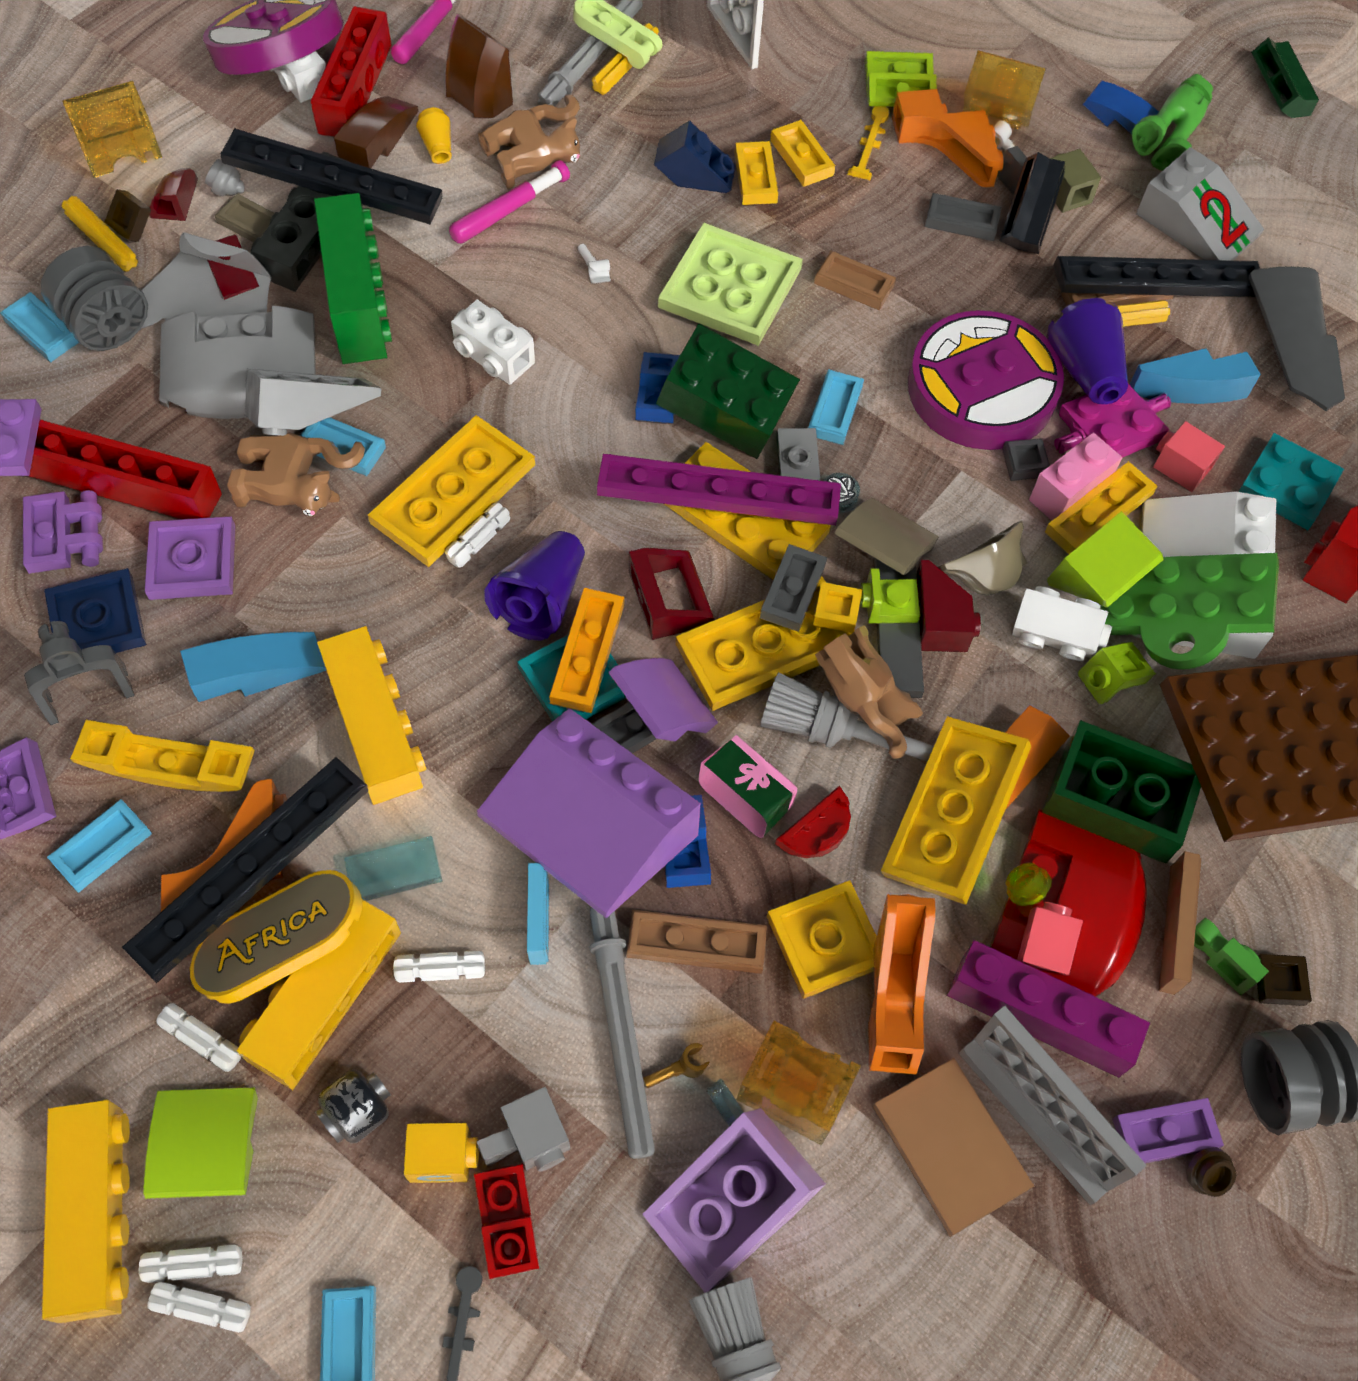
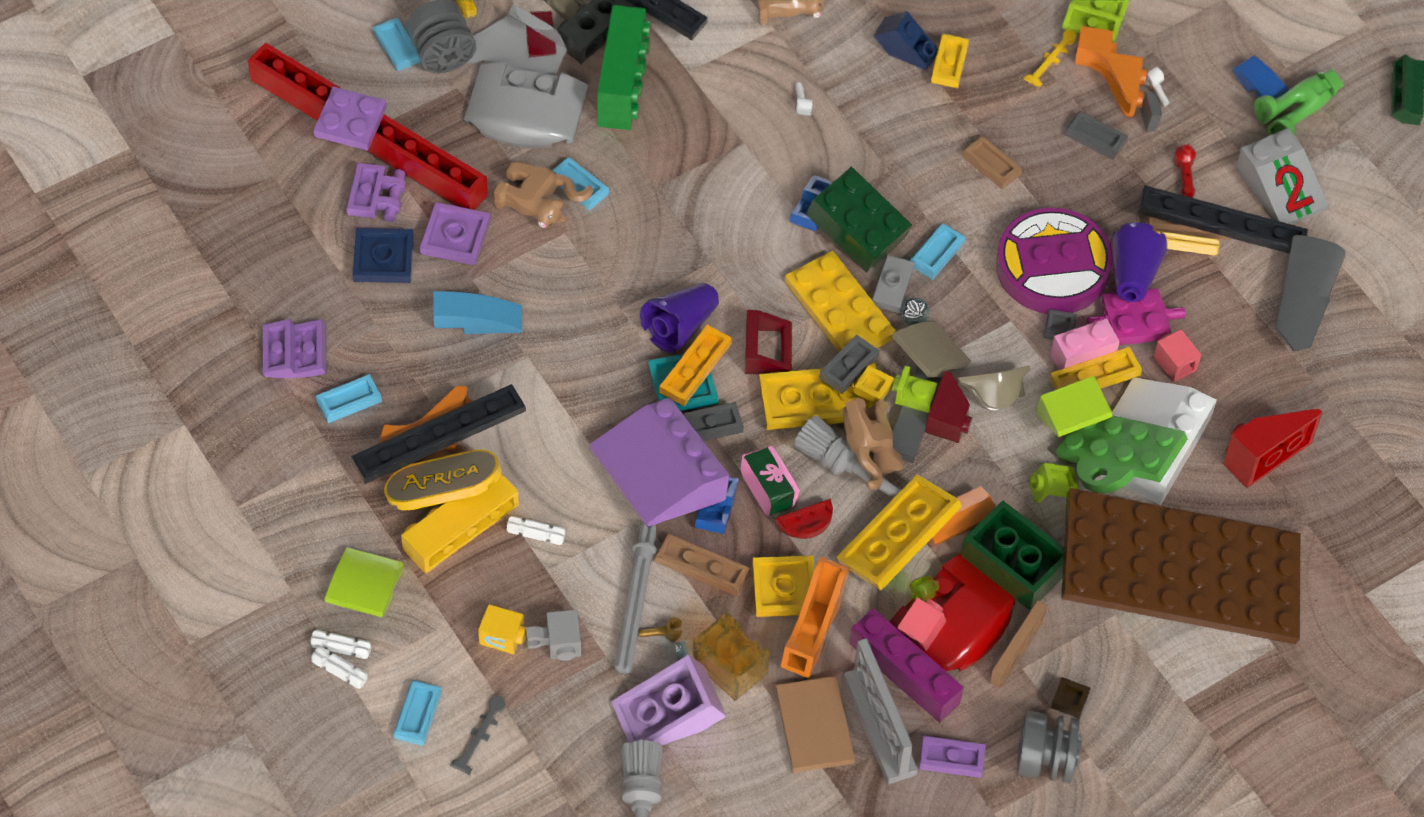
camera: 20 degrees right, 5 degrees down
(65, 659) = (362, 276): dark grey piece -> none
(85, 1212) = (289, 596): yellow brick -> none
(162, 761) = (402, 359): yellow slope -> none
(199, 1037) = (379, 526): white axle -> none
(298, 400) = (559, 145): light grey slope -> none
(353, 1106) = (459, 589): head -> none
(371, 716) = (541, 367): yellow brick -> none
(394, 868) = (528, 465): clear light blue tile -> none
(451, 490) = (644, 235): yellow plate -> none
(477, 535) = (651, 271): white axle -> none
(493, 341) = (707, 139): white brick -> none
(500, 207) = (747, 39): dark pink piece -> none
(506, 1221) = (529, 678): red slope -> none
(538, 914) = (607, 517): medium azure tile -> none
(663, 698) = (735, 410): medium lavender slope -> none
(719, 489) = (825, 285): magenta plate -> none
(730, 283) = (896, 141): yellowish green plate -> none
(802, 153) = (992, 54): yellow plate -> none
(1003, 88) = (1168, 48): clear yellow brick -> none
(1033, 203) = (1149, 140): black piece -> none
(1063, 624) = (1030, 443): white brick -> none
(1076, 219) = (1184, 160): none -> red piece
(1079, 181) = (1190, 127): olive brick -> none
(1197, 378) = (1211, 302): dark azure slope -> none
(1211, 1172) = (968, 785): dark brown plate -> none
(1230, 959) = (1042, 676): bright green plate -> none
(1295, 478) = (1249, 392): teal plate -> none

